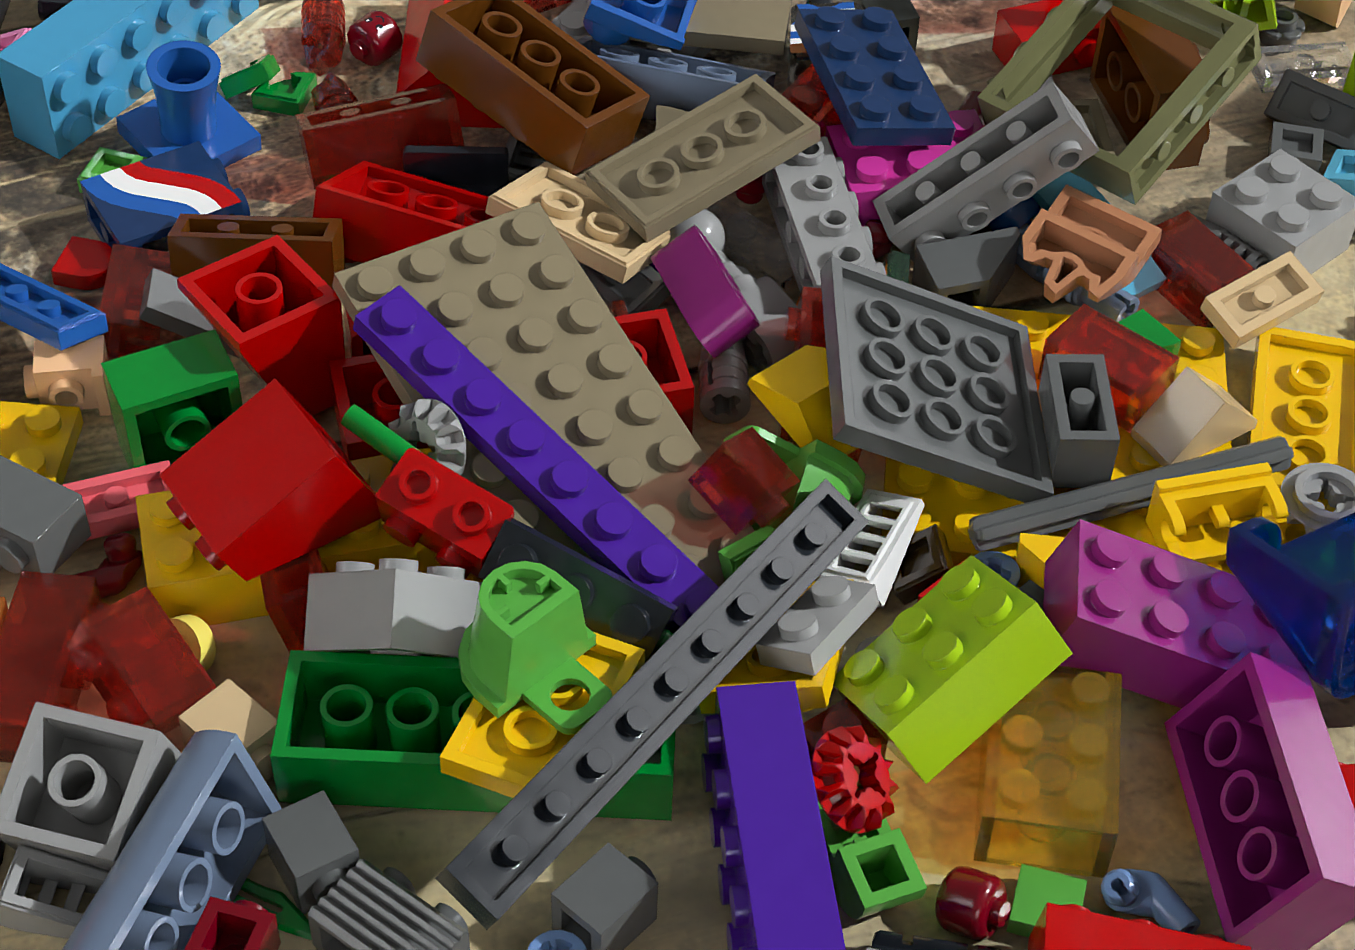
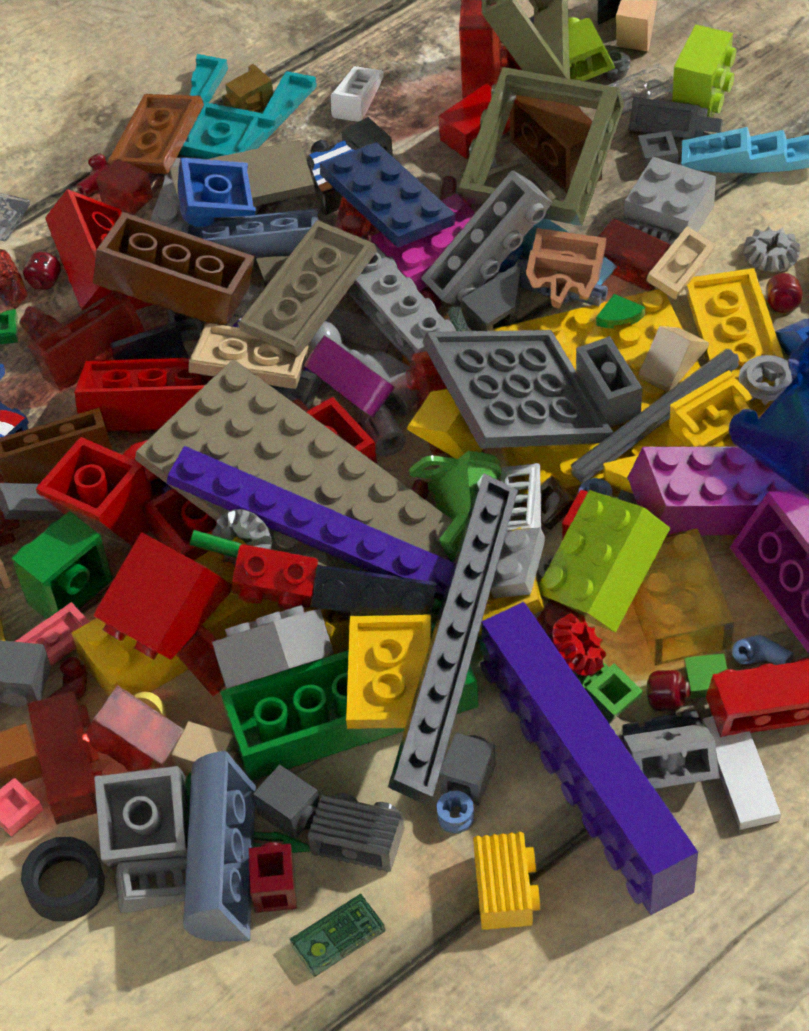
camera: 15 degrees left, 5 degrees up
(527, 645) = (365, 638): bright green container -> none
(745, 482) = (437, 492): clear red brick -> none
(1135, 366) = (628, 333): clear red brick -> none

